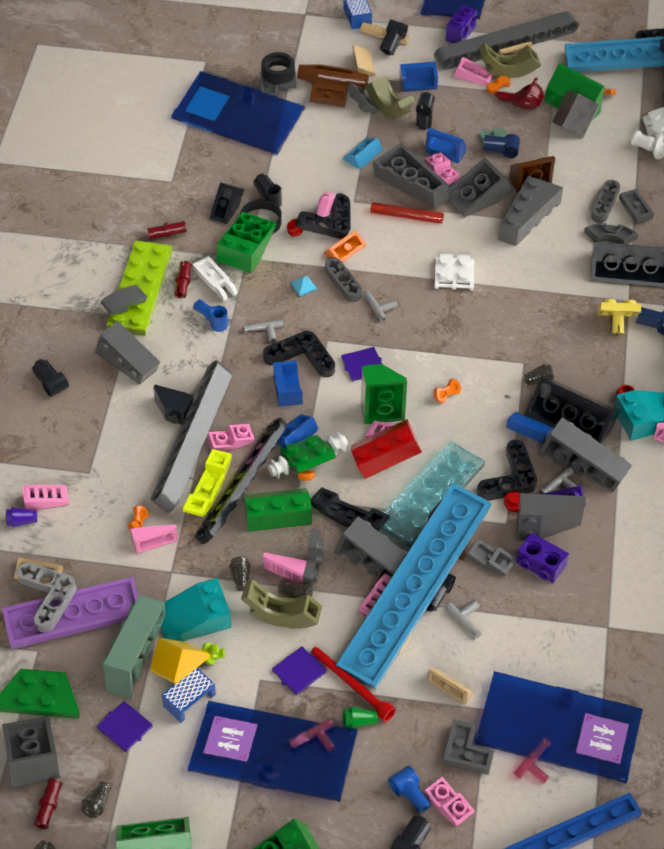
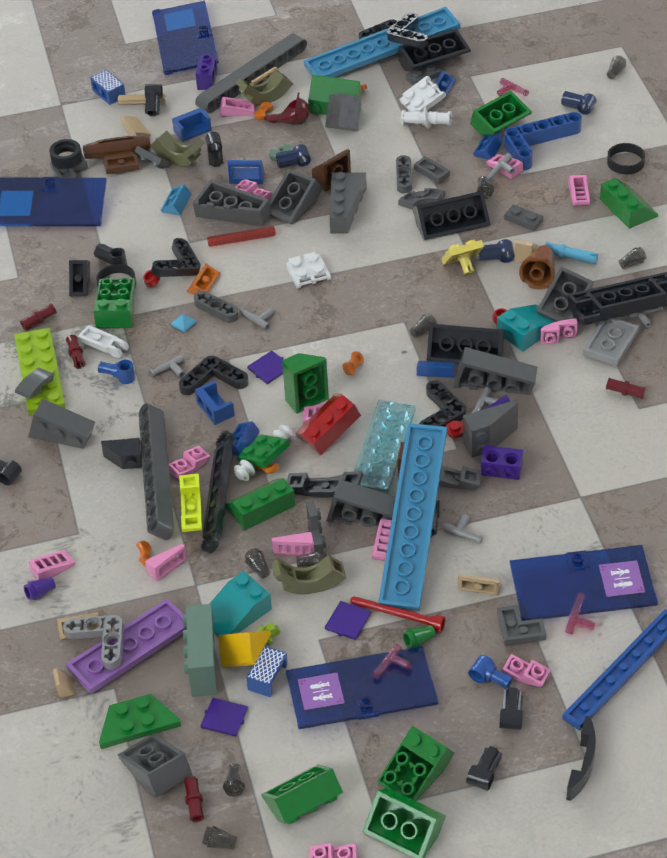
camera: 20 degrees left, 5 degrees down
(325, 204) = (169, 249): bright pink slope -> none

